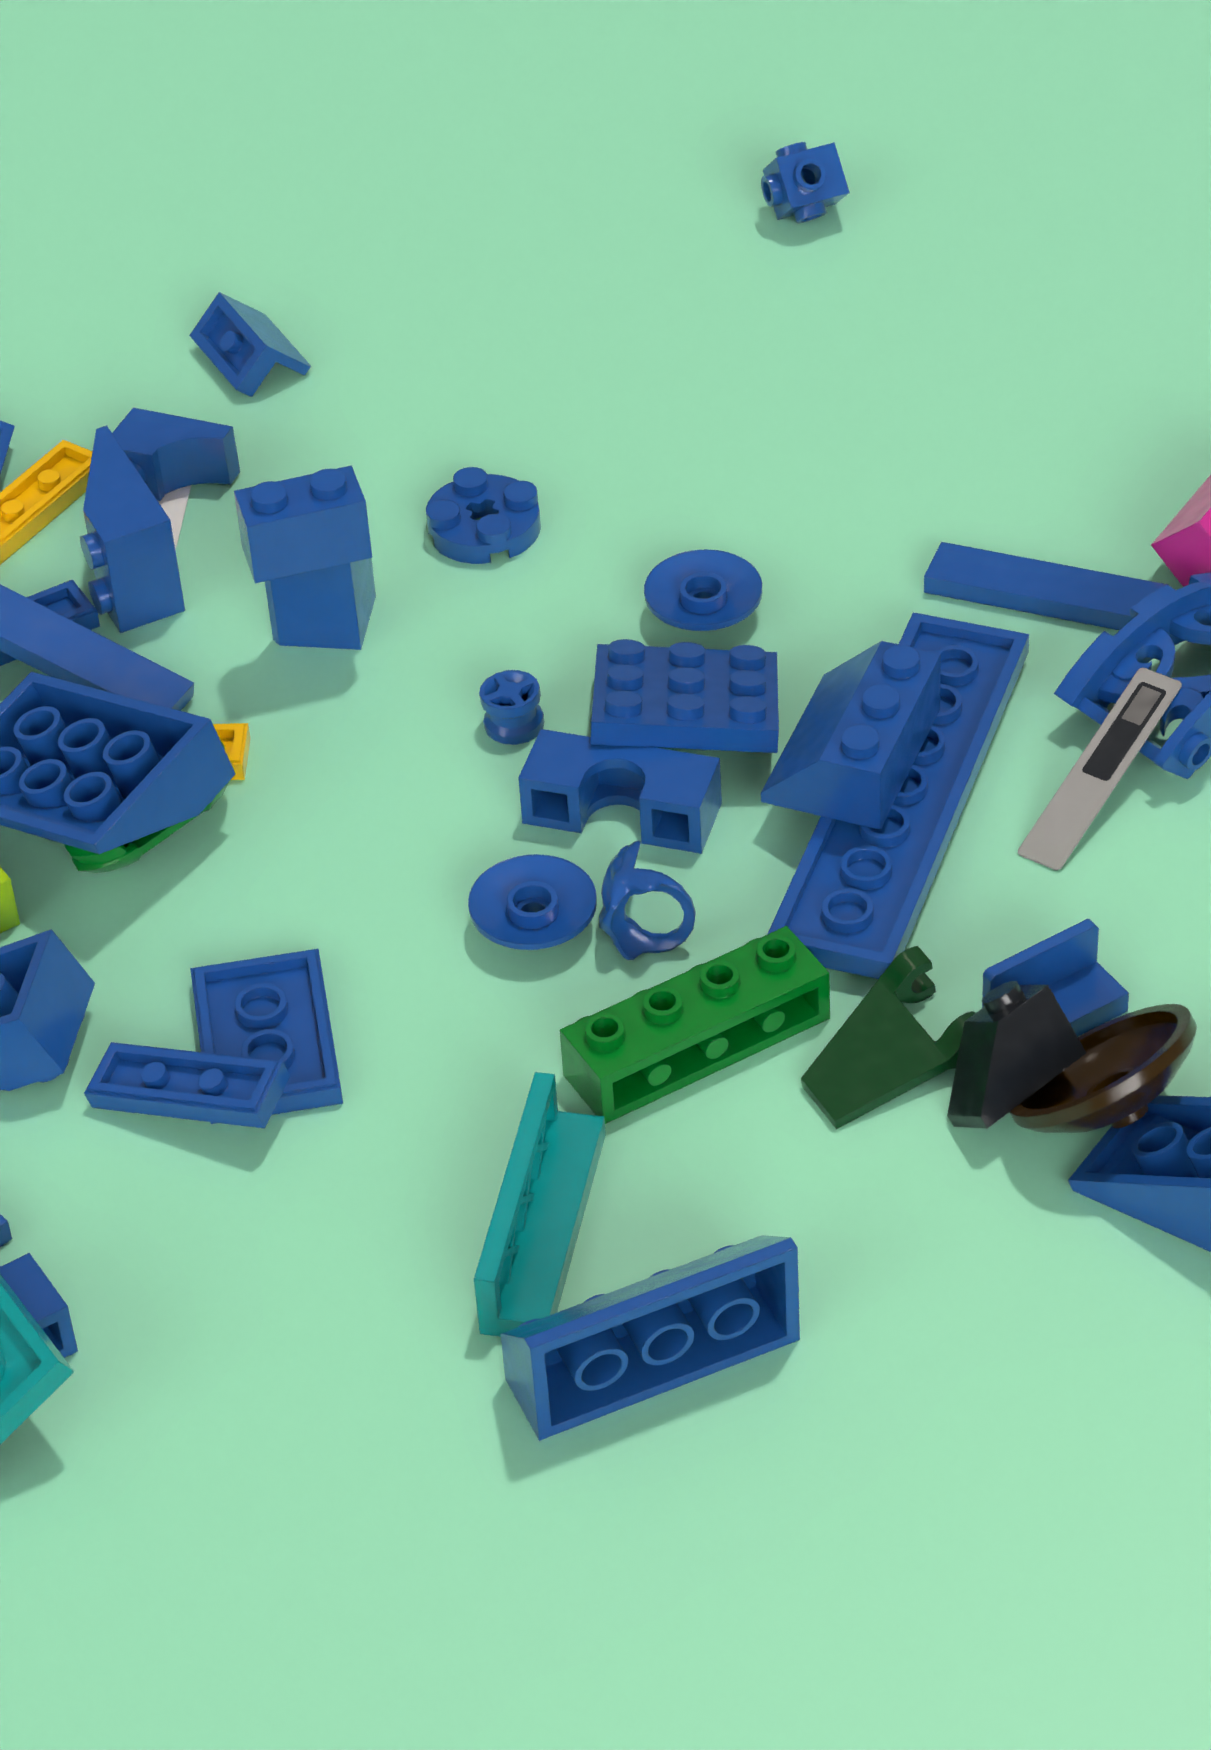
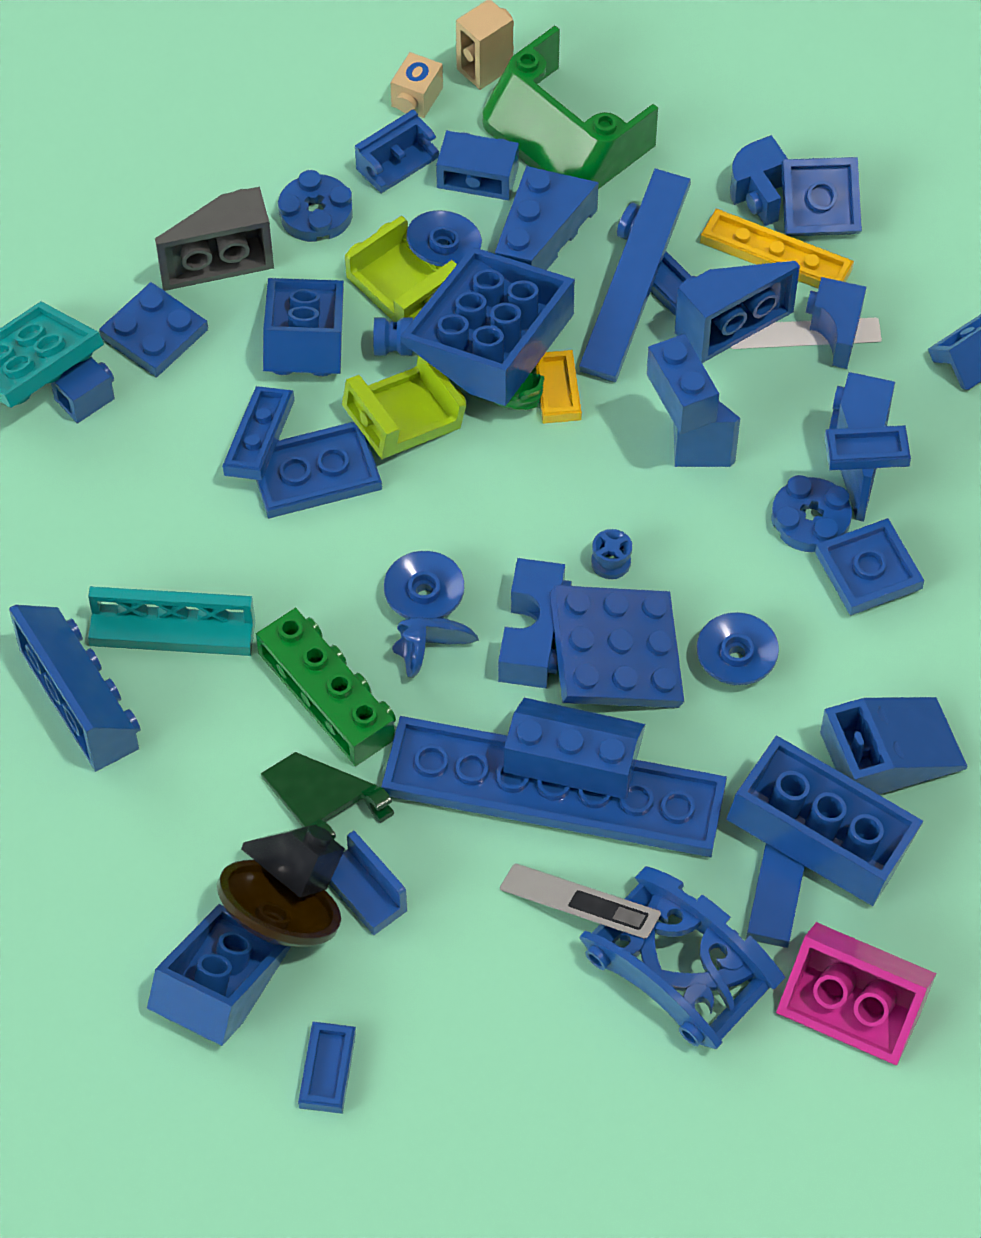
camera: 80 degrees right, 15 degrees up
(42, 904) = (387, 336): none -> blue wheel
(185, 902) = (404, 408): none -> lime panel
(400, 427) = (860, 404): none -> blue slope
(447, 382) = (867, 447): none -> blue tile
(587, 466) = (869, 566): none -> blue plate
(884, 473) = (891, 741): none -> blue slope
(1003, 517) = (824, 820): none -> blue slope

